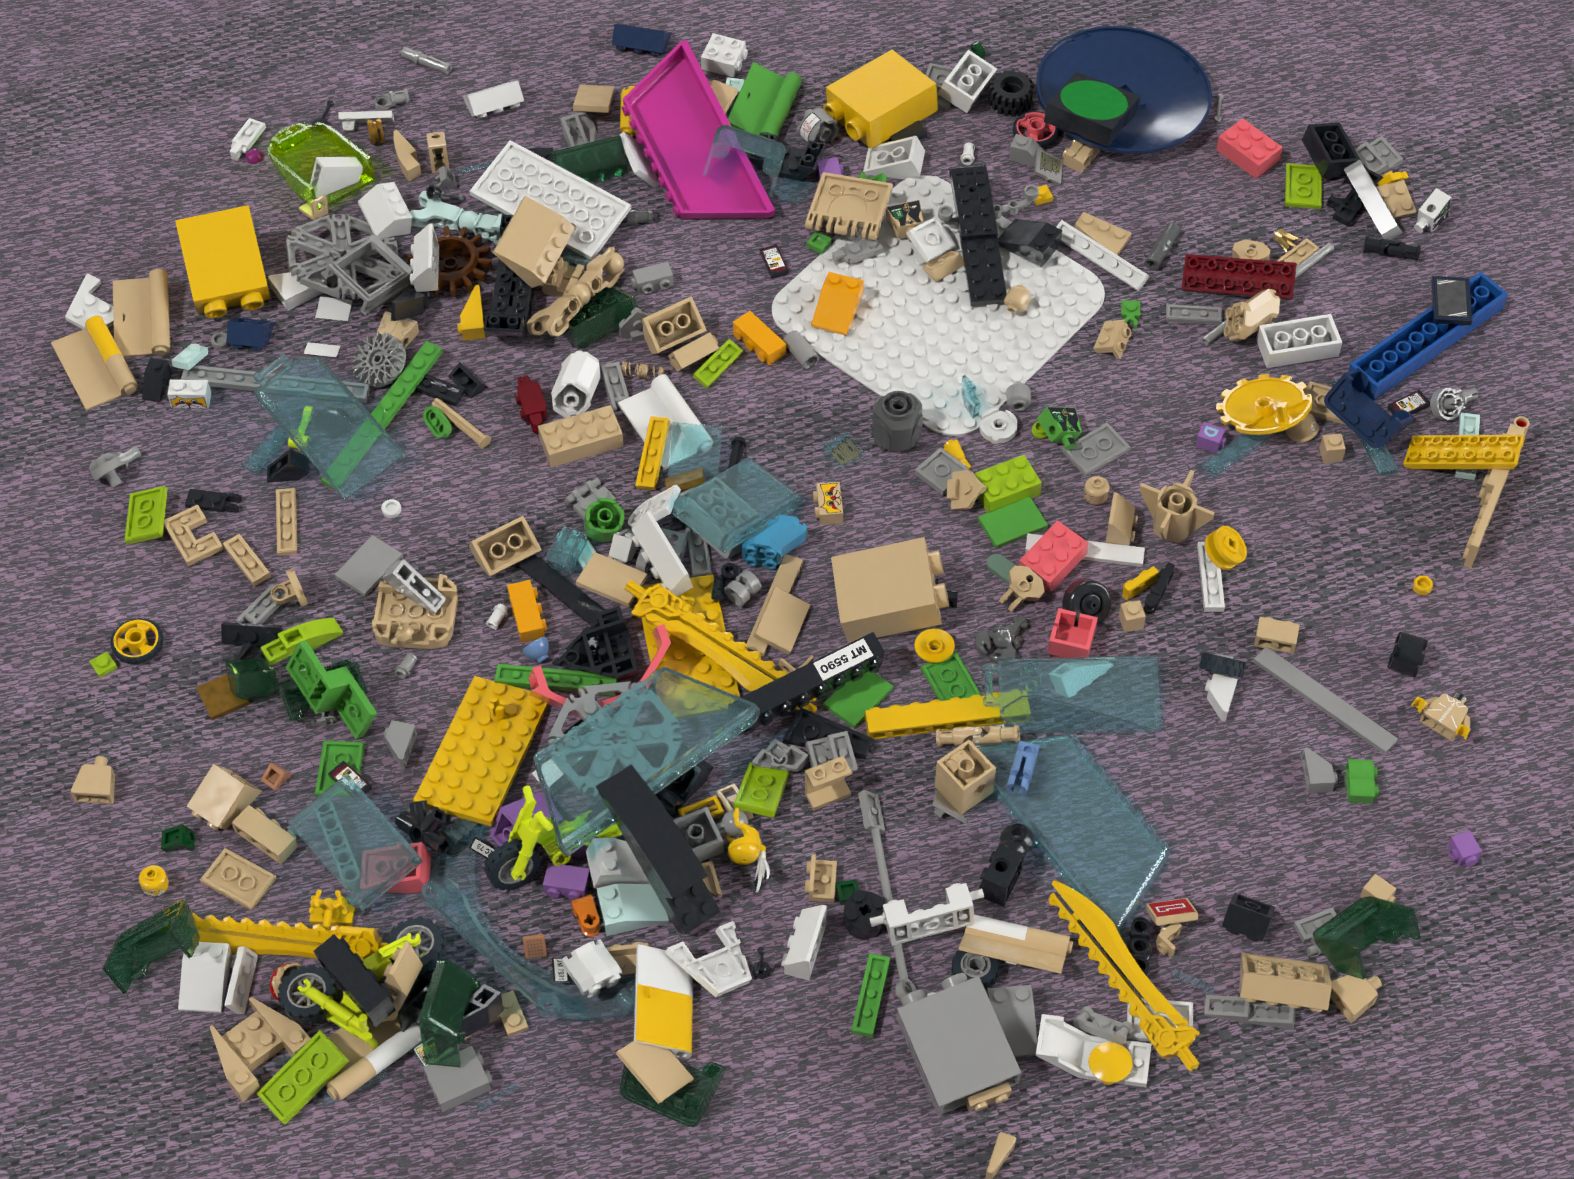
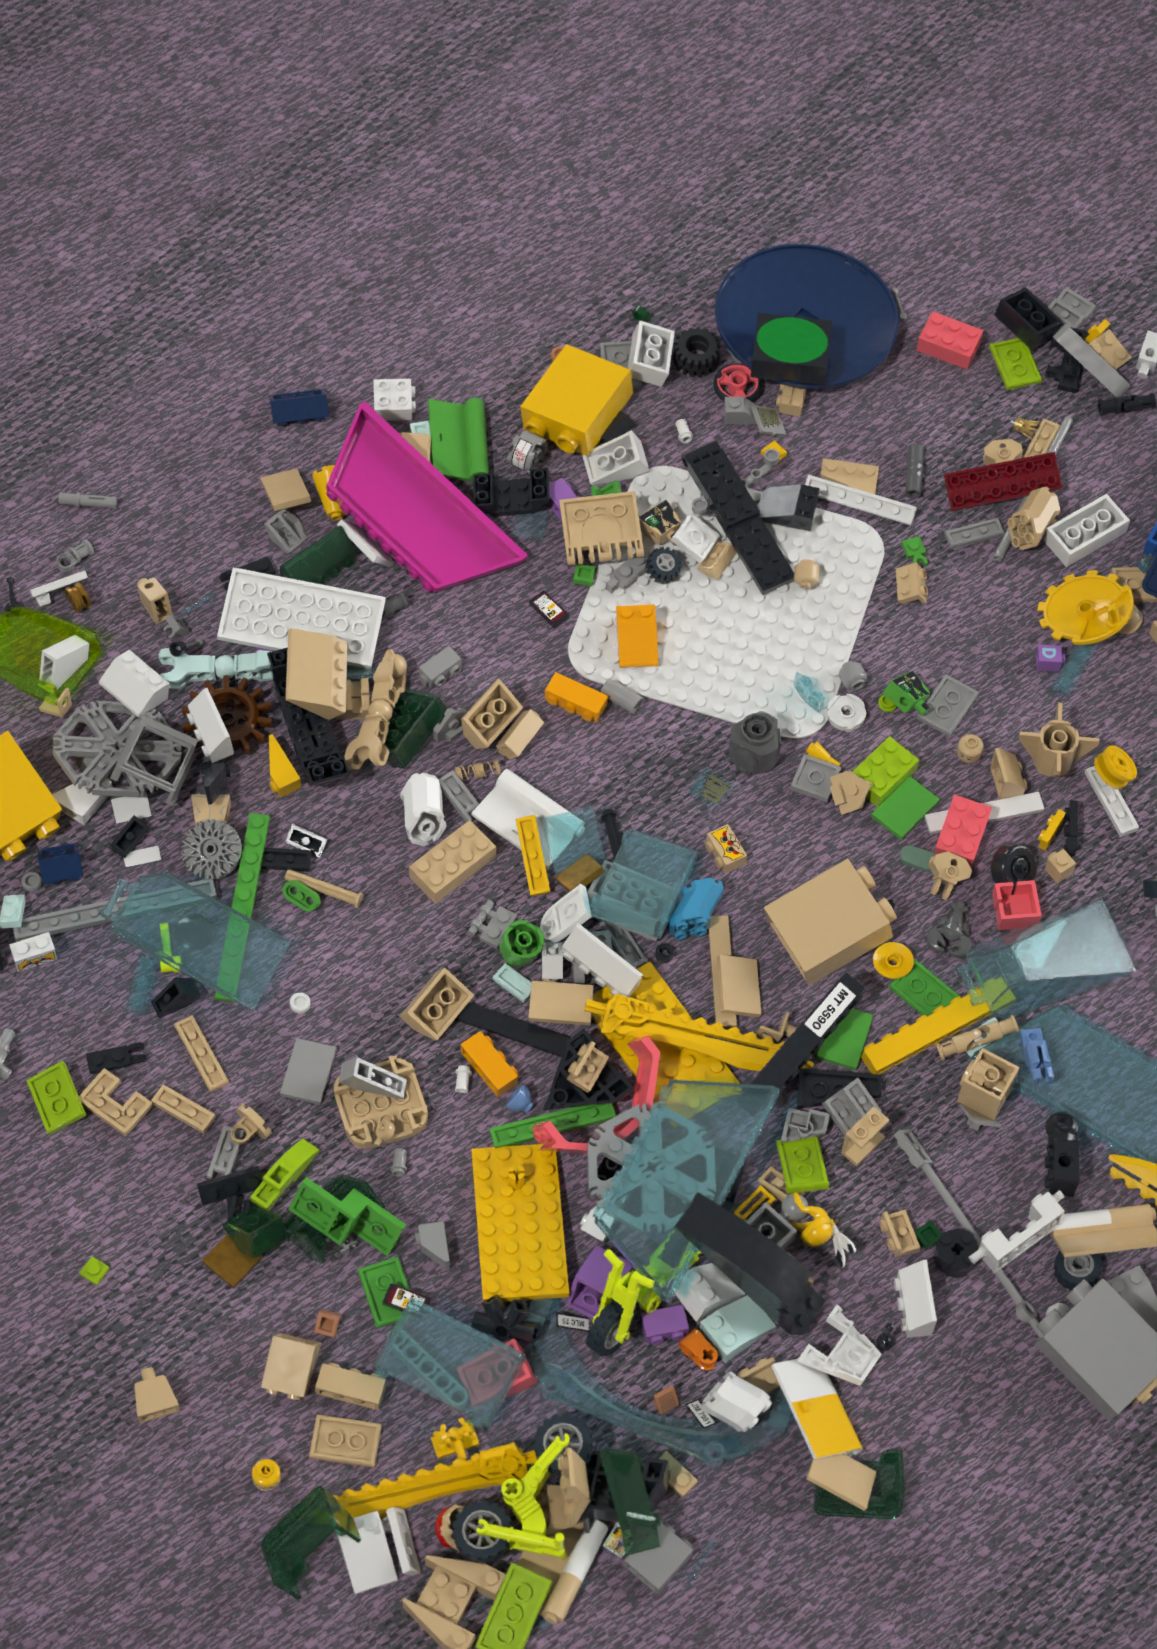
camera: 25 degrees left, 5 degrees up
(136, 631) = (116, 1216): yellow wheel -> none
(177, 837) = (265, 1423): dark green bracket -> none
(317, 330) = (128, 837): none -> black slope
(355, 979) = (534, 1503): black brick -> none
(406, 157) = (122, 615): tan slope -> none
(494, 99) = (180, 521): white slope -> none
(532, 403) = (386, 842): dark red hinge -> none
(566, 549) = (499, 986): clear light blue brick -> none
(605, 638) = (588, 1066): none -> tan bracket
(717, 363) = (548, 738): lime plate -> none
(718, 588) = (663, 975): black axle -> none
(742, 588) = (686, 966): light grey wheel -> none
(771, 150) = (504, 497): clear light blue windscreen -> none
(870, 995) = (996, 1328): bright green plate -> none
(895, 248) = (666, 558): none -> black wheel

